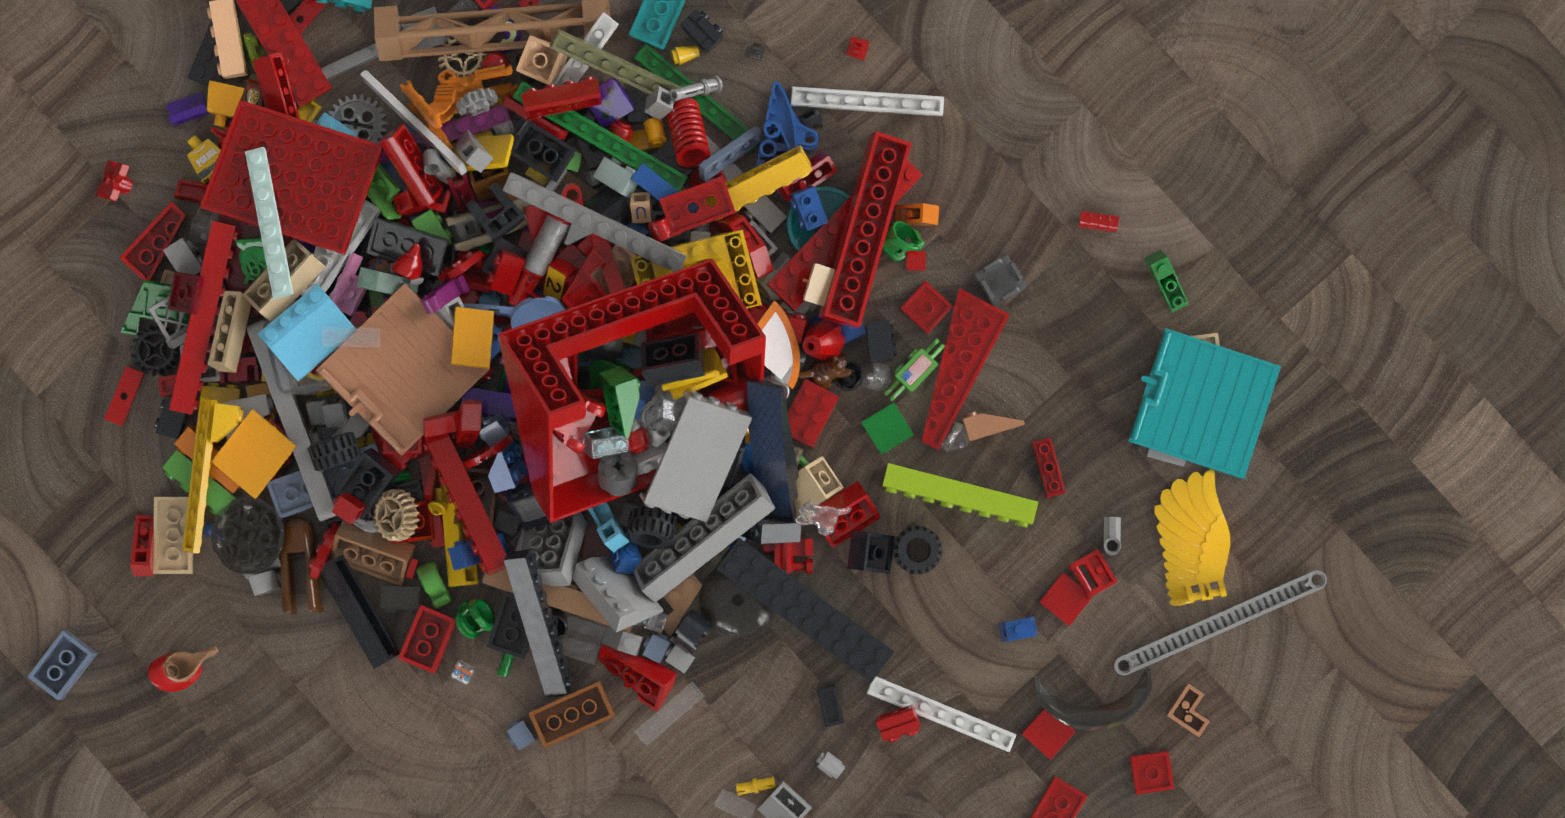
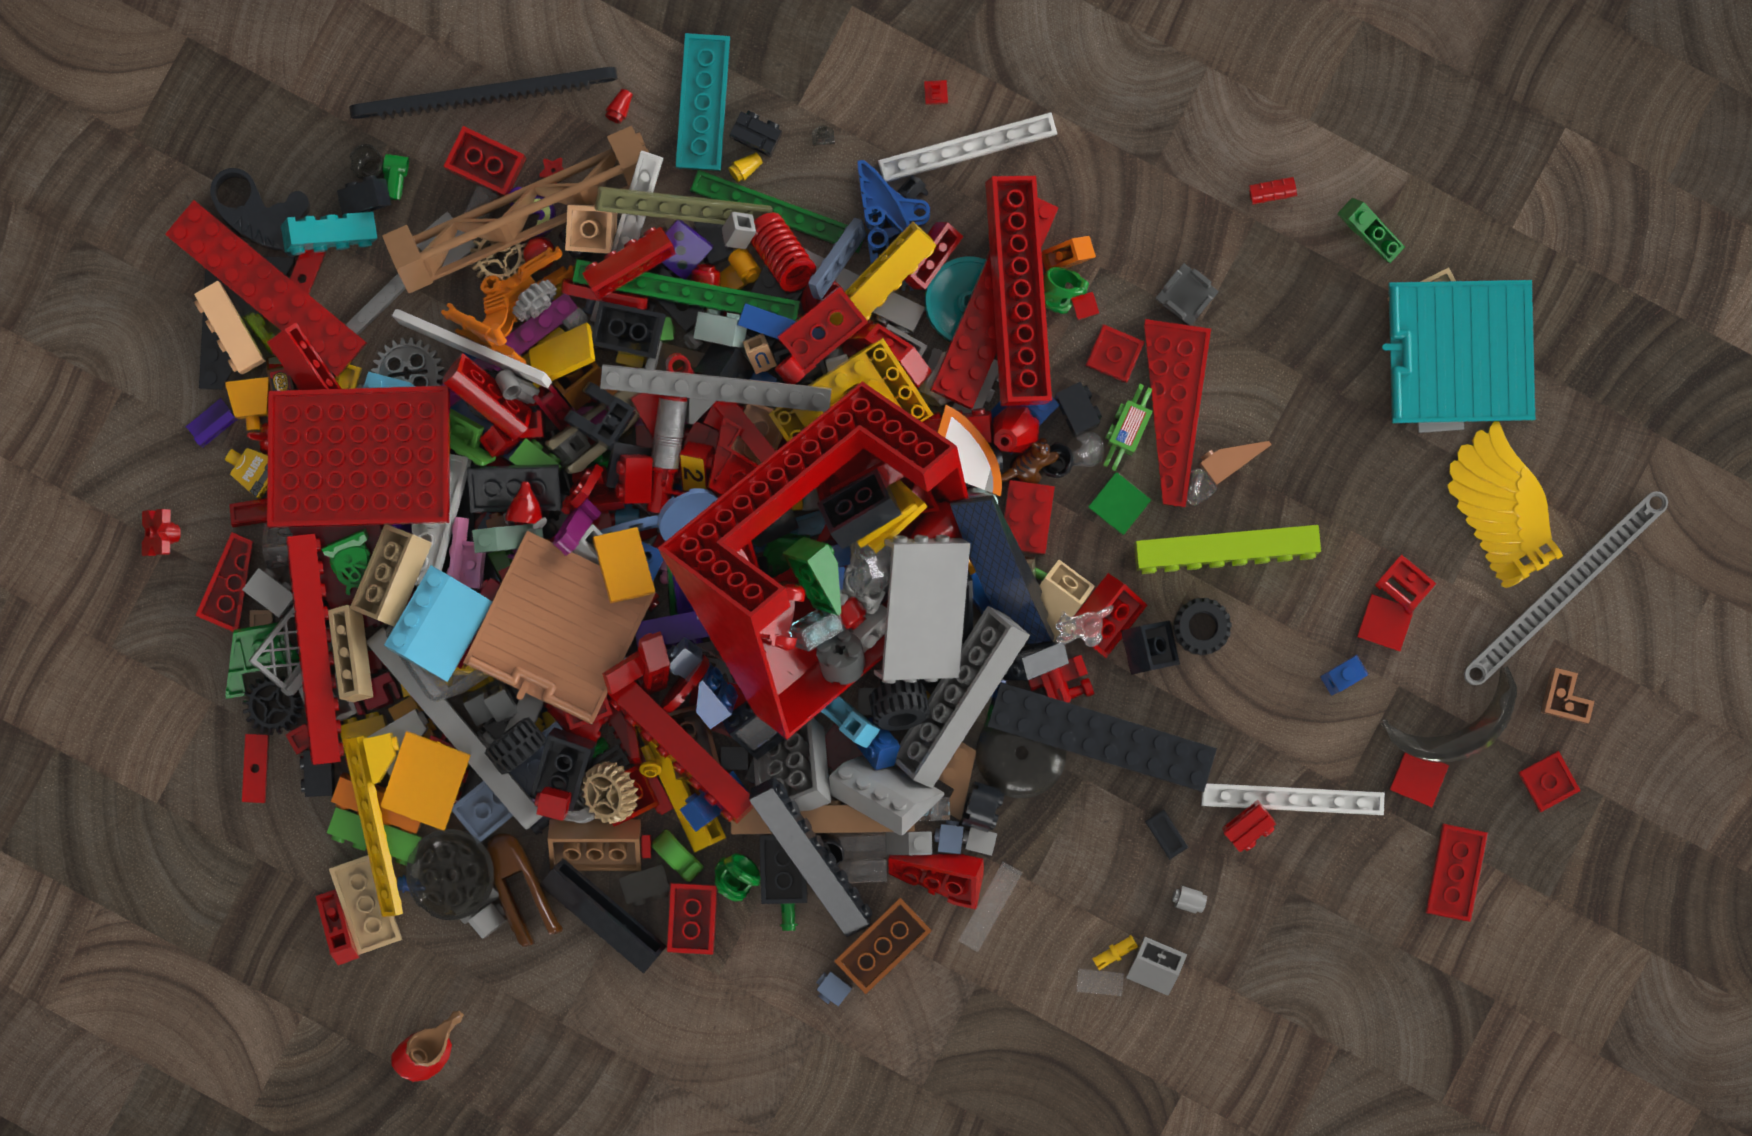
camera: 20 degrees left, 0 degrees up
(62, 665) = (293, 1093): sand blue brick -> none
(185, 292) = (285, 627): dark red tile -> none
(269, 223) = (352, 516): light aqua plate -> none
(323, 551) = (540, 862): red plate -> none
(350, 337) = (489, 612): clear plate -> none
(463, 672) = (744, 942): clear tile -> none
(473, 152) = (551, 357): light grey slope -> none
(702, 87) = (779, 196): light grey pin -> none
(808, 208) = (946, 289): blue brick -> none
(818, 284) = (989, 369): tan panel -> none
(1051, 479) = (1323, 495): red tile -> none
(1112, 532) = (1410, 532): light grey piece -> none

